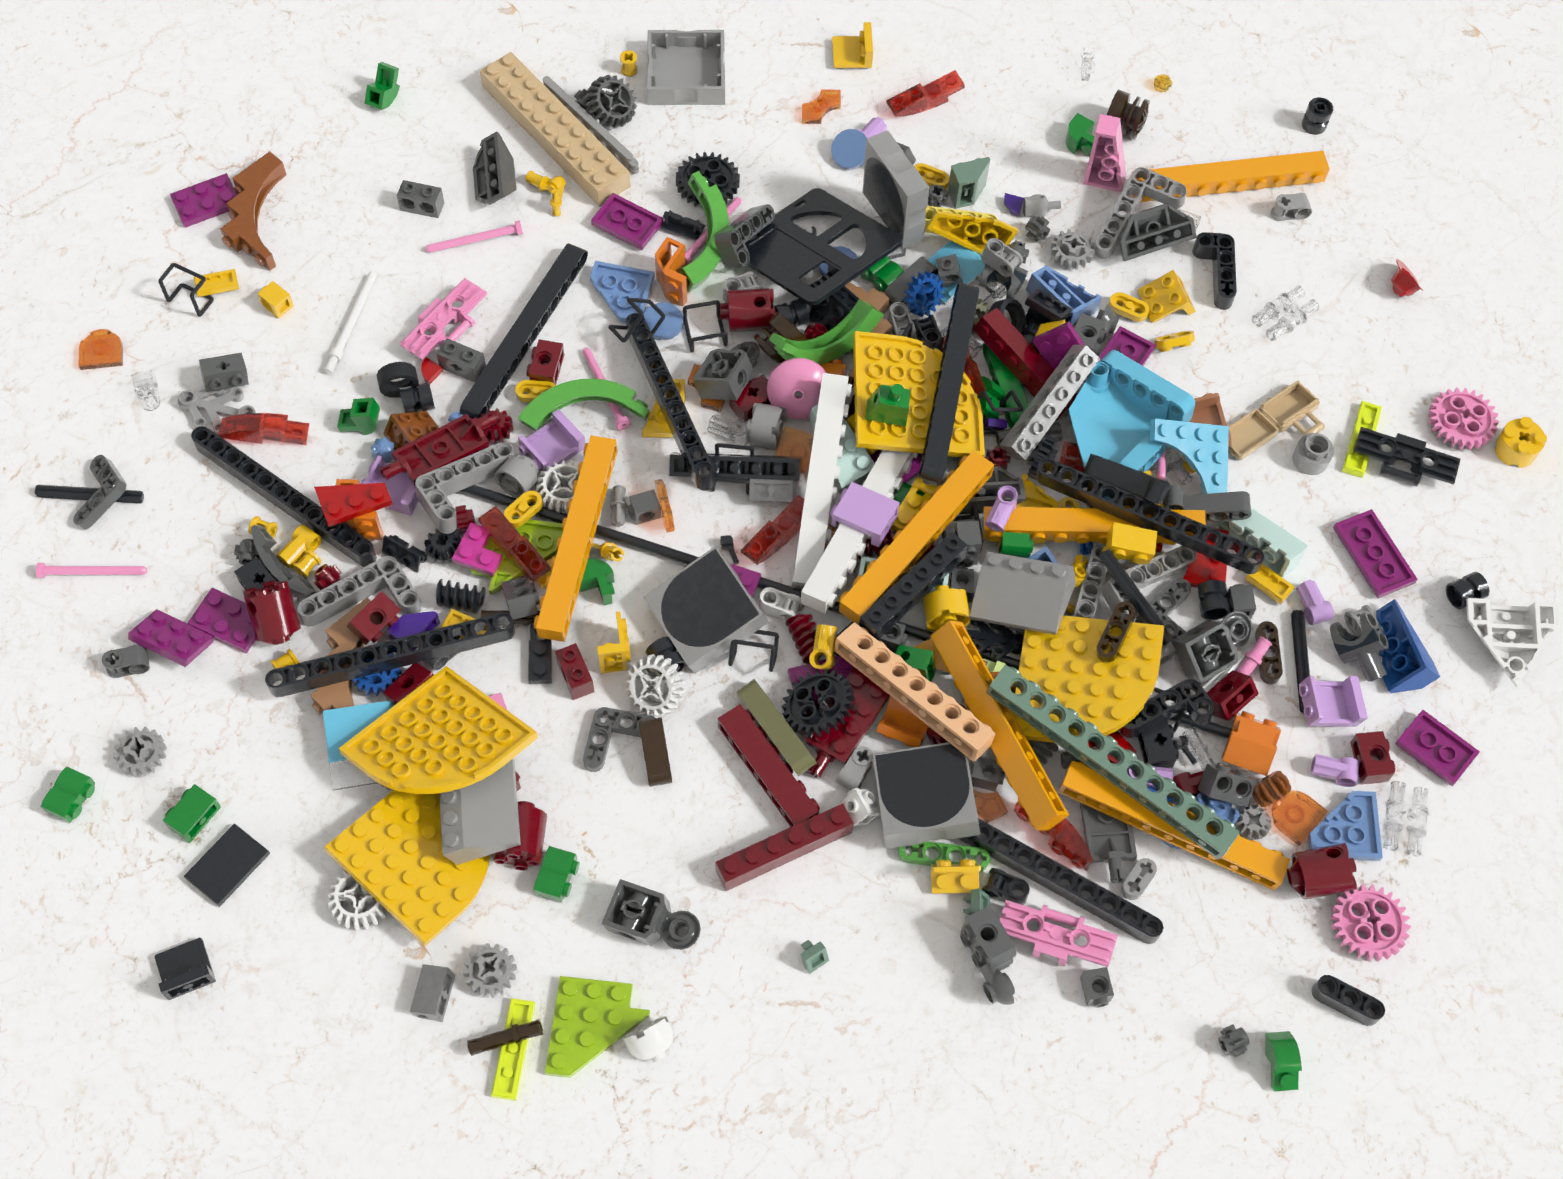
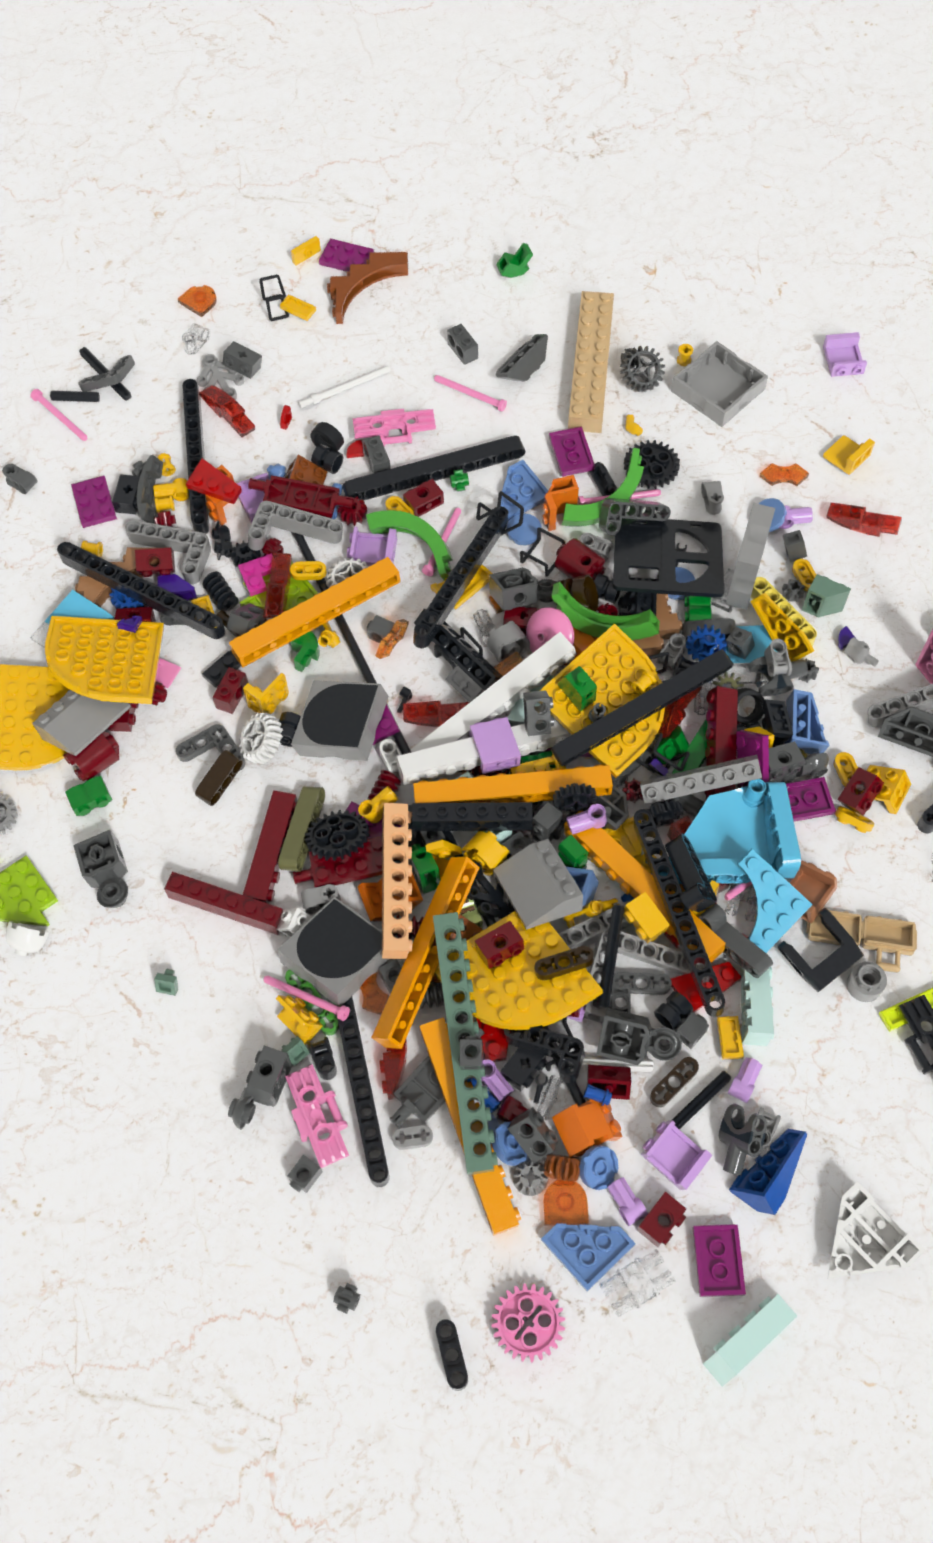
camera: 50 degrees right, 0 degrees up
(84, 539) = (79, 396): none -> black axle
(159, 223) = (305, 250): none -> yellow plate
(170, 637) = (52, 484): magenta plate -> none
(272, 612) = (110, 512): dark red cylinder -> none
(275, 299) = (317, 341): yellow brick -> none
(327, 388) = (286, 417): none -> red tile
(361, 417) = (284, 443): green brick -> none
(422, 691) = (130, 624): none -> dark purple tile
(517, 475) = (330, 548): light grey piece -> none
(554, 186) = (552, 396): yellow pin -> none
(560, 322) = (459, 480): none -> green gear
(593, 126) = (614, 381): light grey hinge -> none
(618, 505) = (367, 616): light grey axle -> none
(652, 161) = (632, 427): none -> yellow arm
(774, 648) = (336, 763): black piece -> none
(787, 168) = (712, 496): none -> light grey piece
(878, 455) = (534, 713): none -> dark grey brick
(916, 635) = (443, 849): none -> yellow plate
(923, 416) = (597, 711): none -> dark grey pin
(930, 360) = (643, 683): none -> yellow bush
(941, 853) = (341, 1012): none -> bright pink bar
(978, 498) = (574, 797): none -> black gear
(1037, 228) = (841, 666): dark grey gear -> none
(1051, 652) = (503, 935): none -> dark red brick
(1072, 249) = (851, 699): light grey gear -> none
(1147, 758) = (473, 1063): none -> dark grey brick
(1153, 303) = (851, 795): none -> dark red brick
(1243, 707) = (598, 1094): none -> blue pin
(1254, 657) = (655, 1074): bright pink pin -> none
(1280, 461) = (834, 964): none -> black connector
(1285, 1060) = (362, 1343): green brick -> none
(1292, 763) = (598, 1167): none -> medium blue tile
(1322, 871) = (529, 1254): dark red cylinder -> none
(1375, 553) = (832, 1089): magenta plate -> none
(1470, 586) = (872, 1178): black wheel -> none
(1518, 780) = (749, 1340): none -> light aqua wedge

